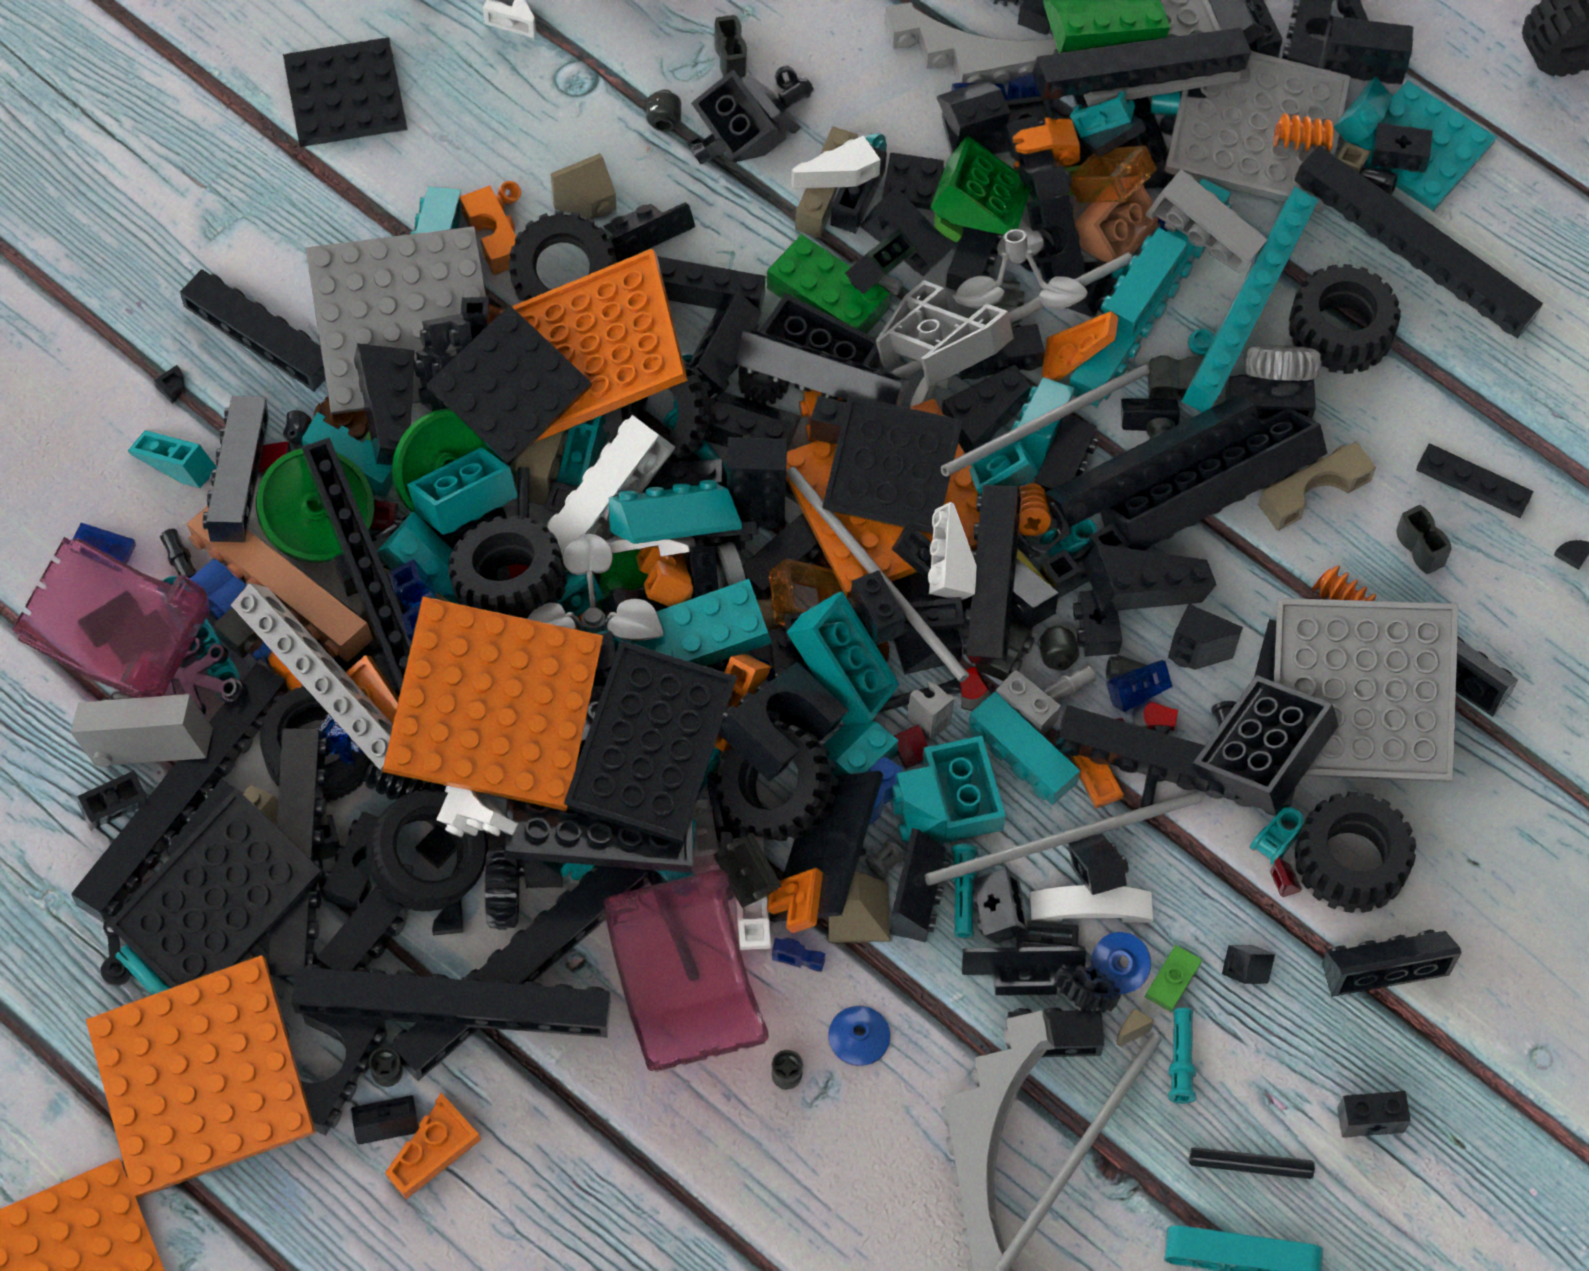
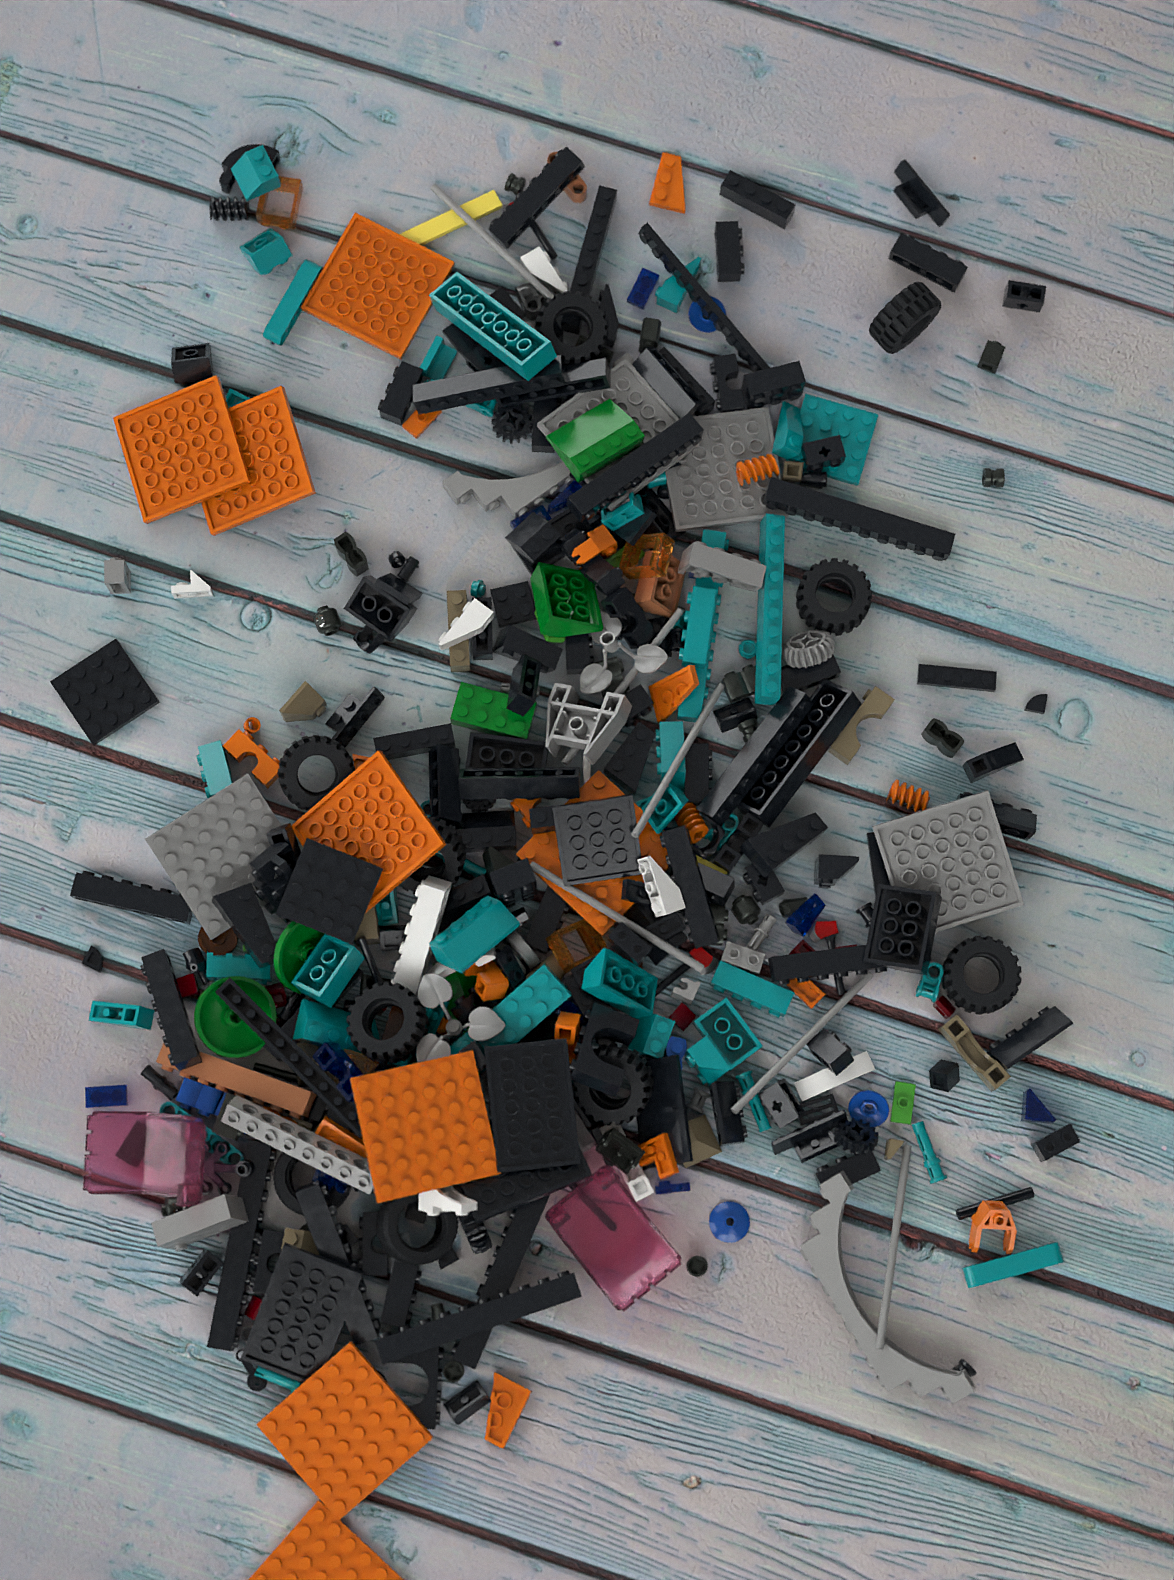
camera: 25 degrees left, 15 degrees up
(1229, 1168) = (992, 1216): none -> orange piece
(1312, 975) = (981, 1063): none -> dark tan arch
(1362, 1062) = (1034, 1110): none -> clear blue slope
(1482, 594) = (992, 762): none -> black slope

